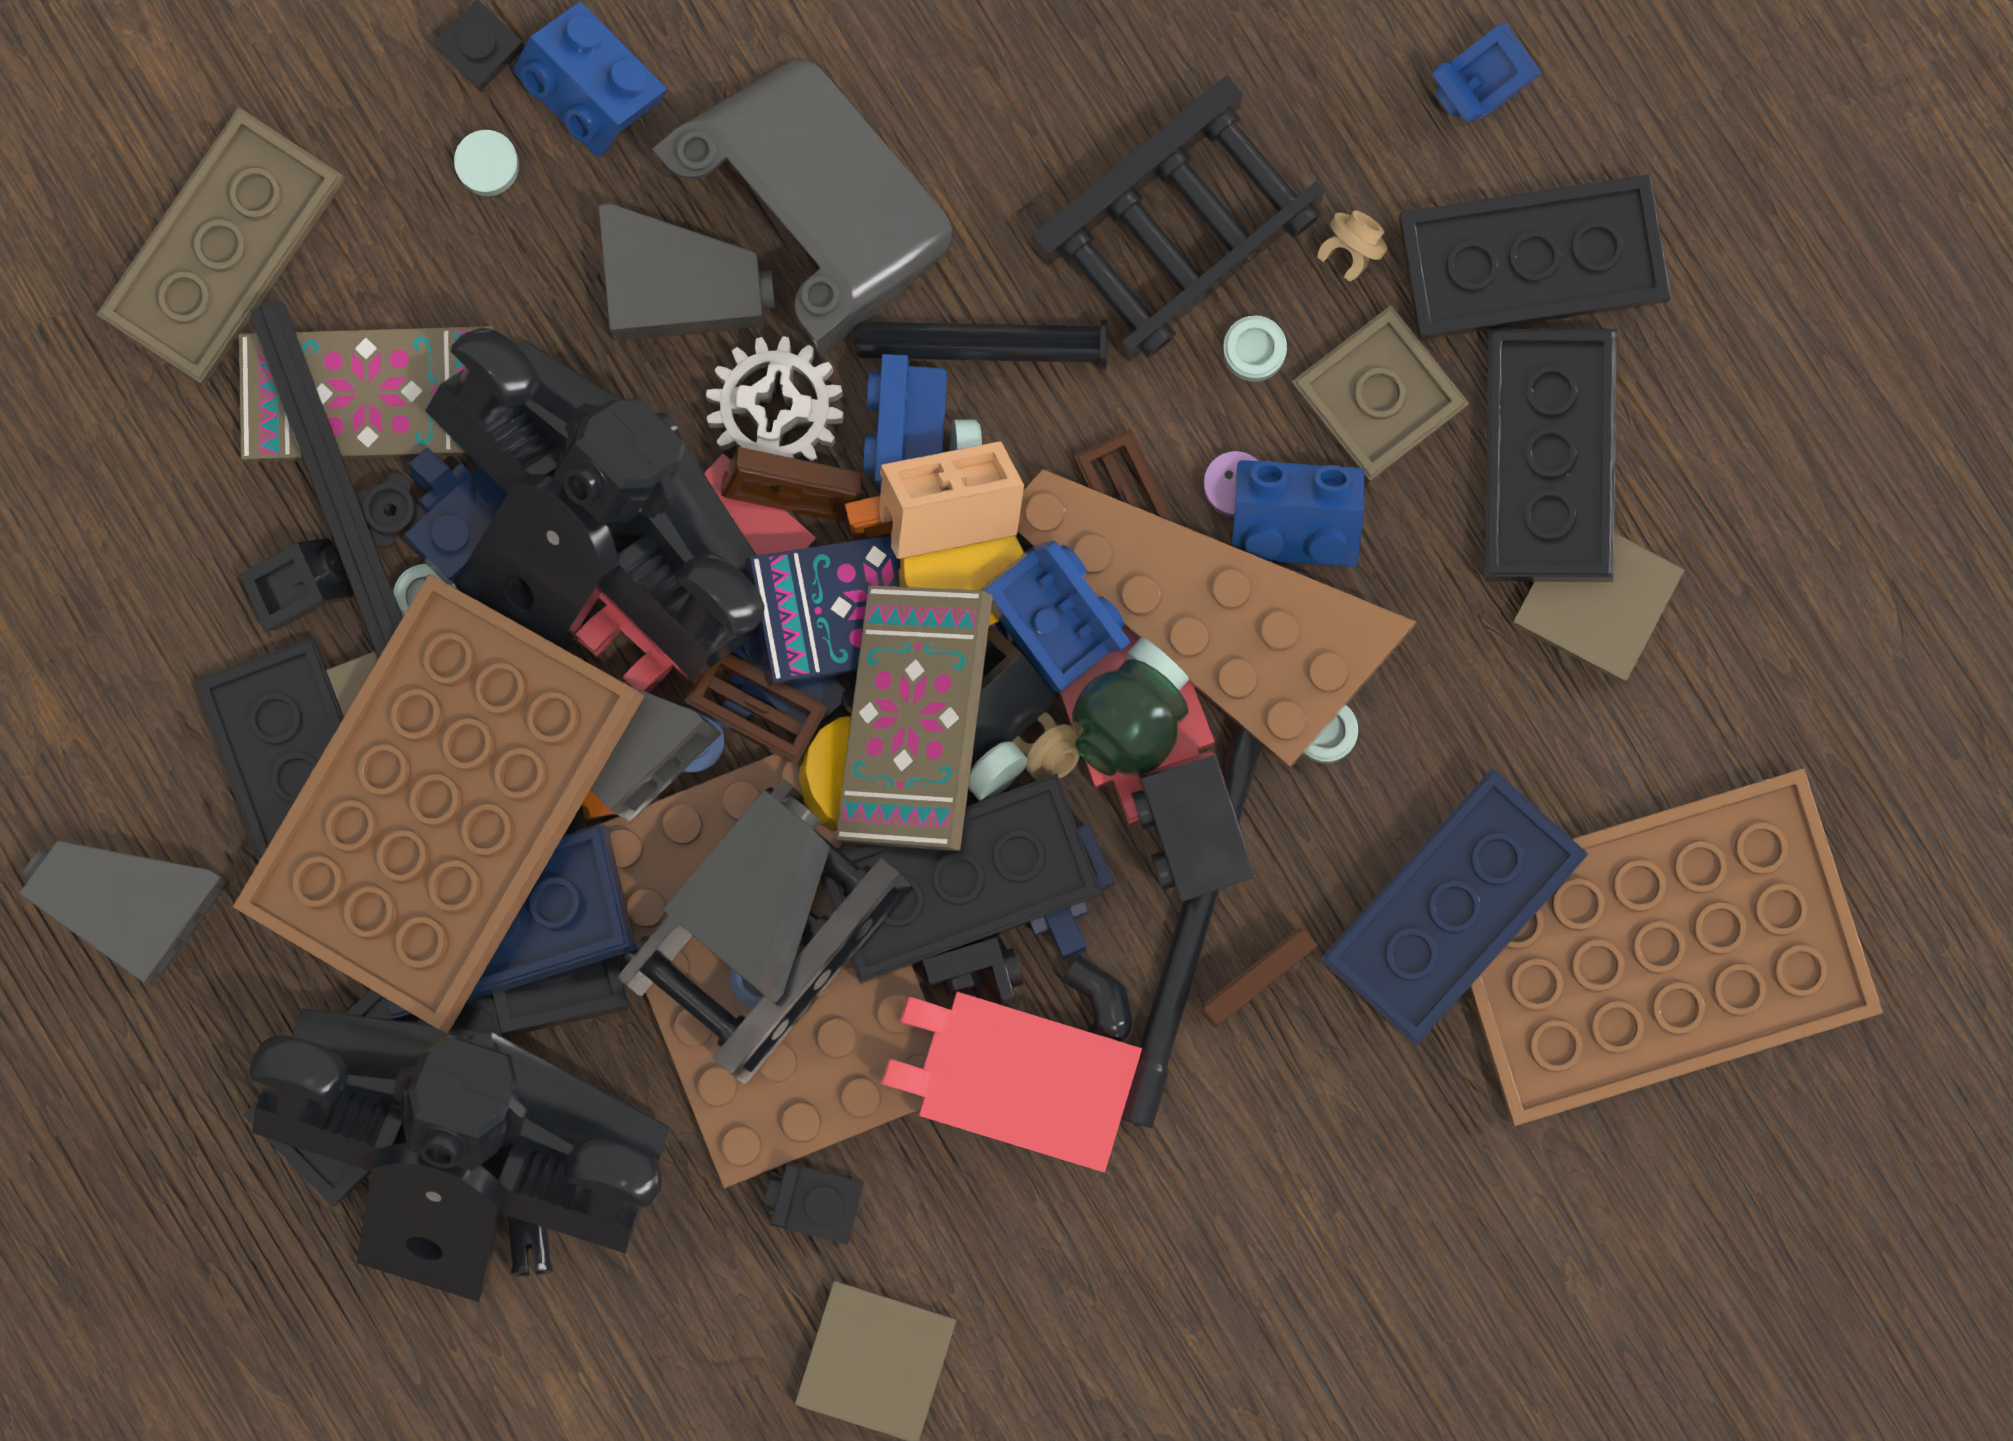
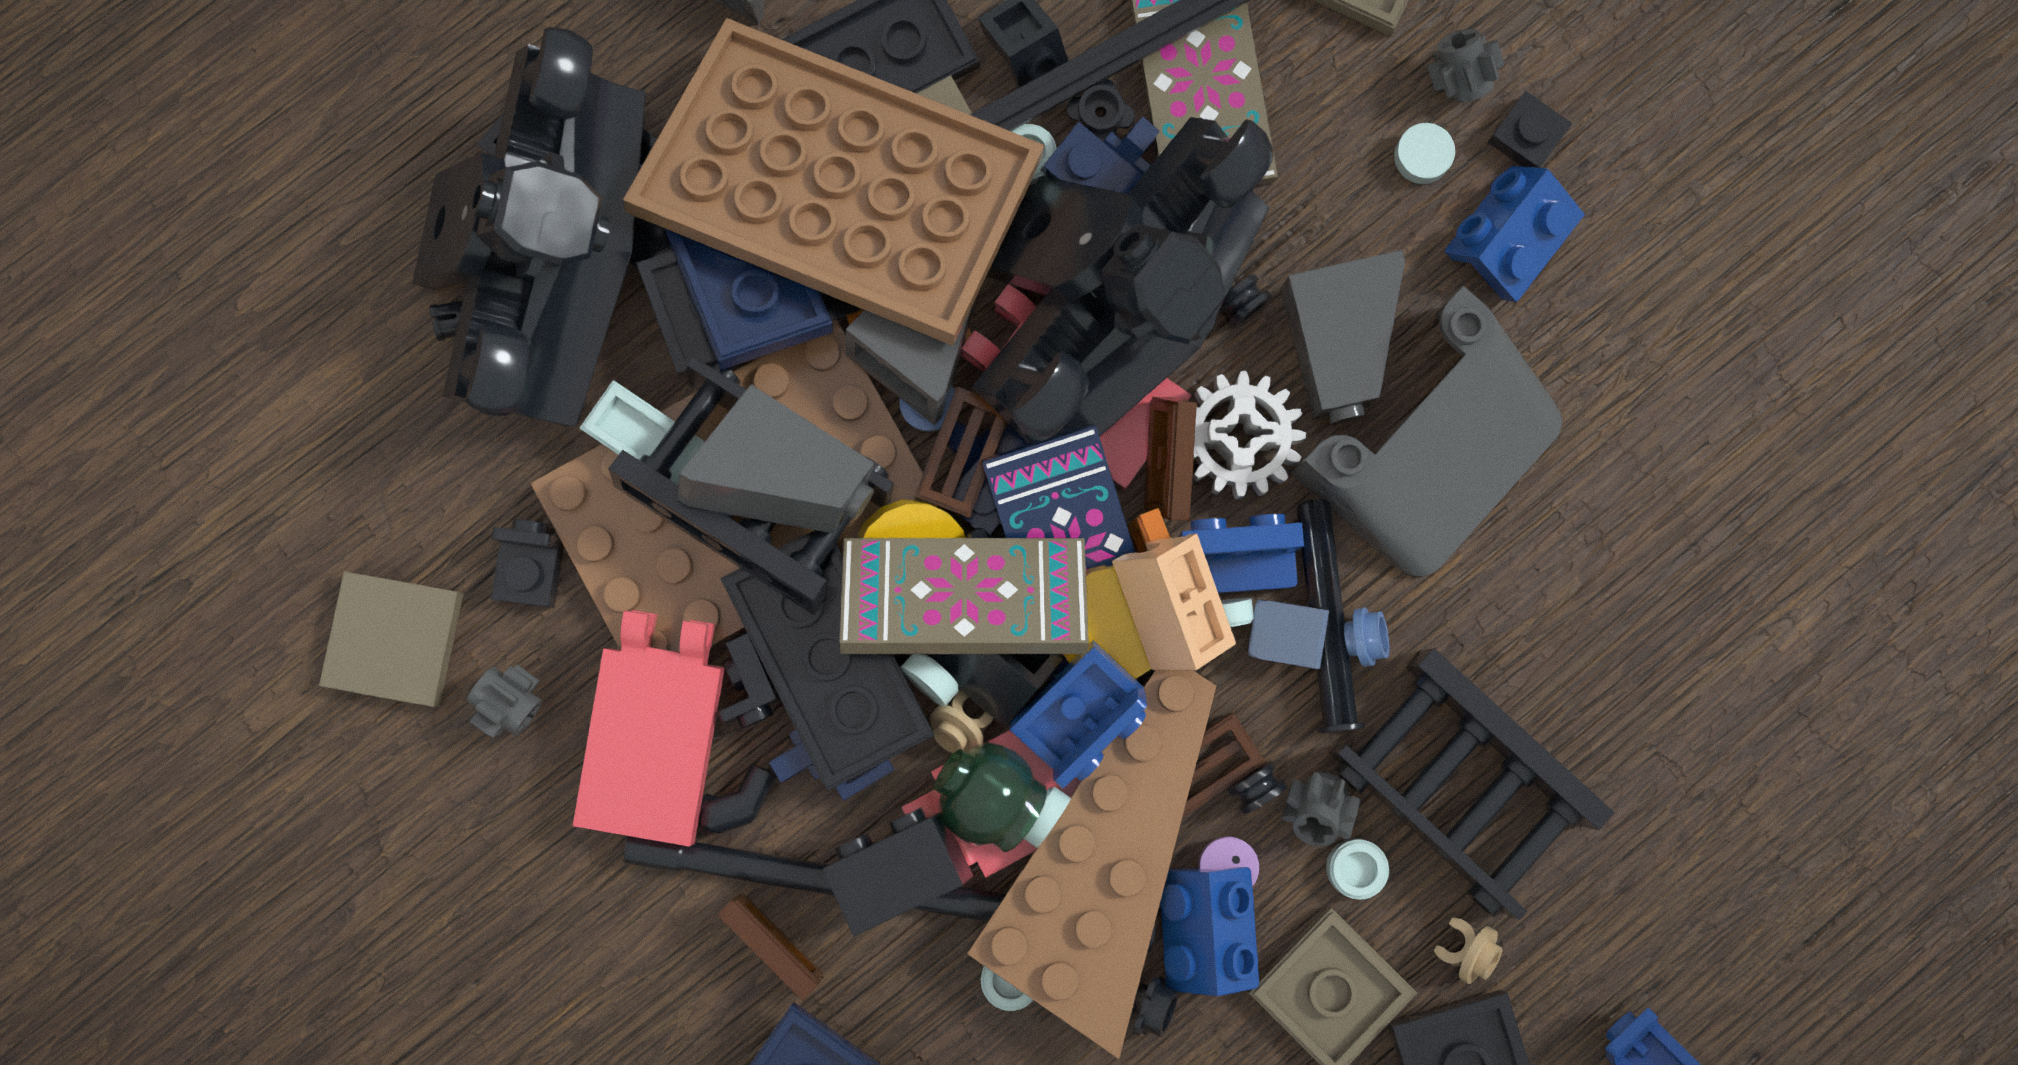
camera: 85 degrees right, 0 degrees up
(398, 105) = (1465, 65): none -> dark grey gear
(626, 379) = (1244, 301): none -> black bush
(683, 1058) = (633, 425): none -> light aqua tile
(961, 1237) = (504, 701): none -> dark grey gear
(996, 385) = (1288, 633): none -> sand blue slope
(1010, 302) = (1367, 636): none -> medium blue plate
(1156, 441) = (1257, 788): none -> black bush
(1186, 377) = (1321, 809): none -> dark grey gear
(1372, 581) = (1154, 1007): none -> black plate

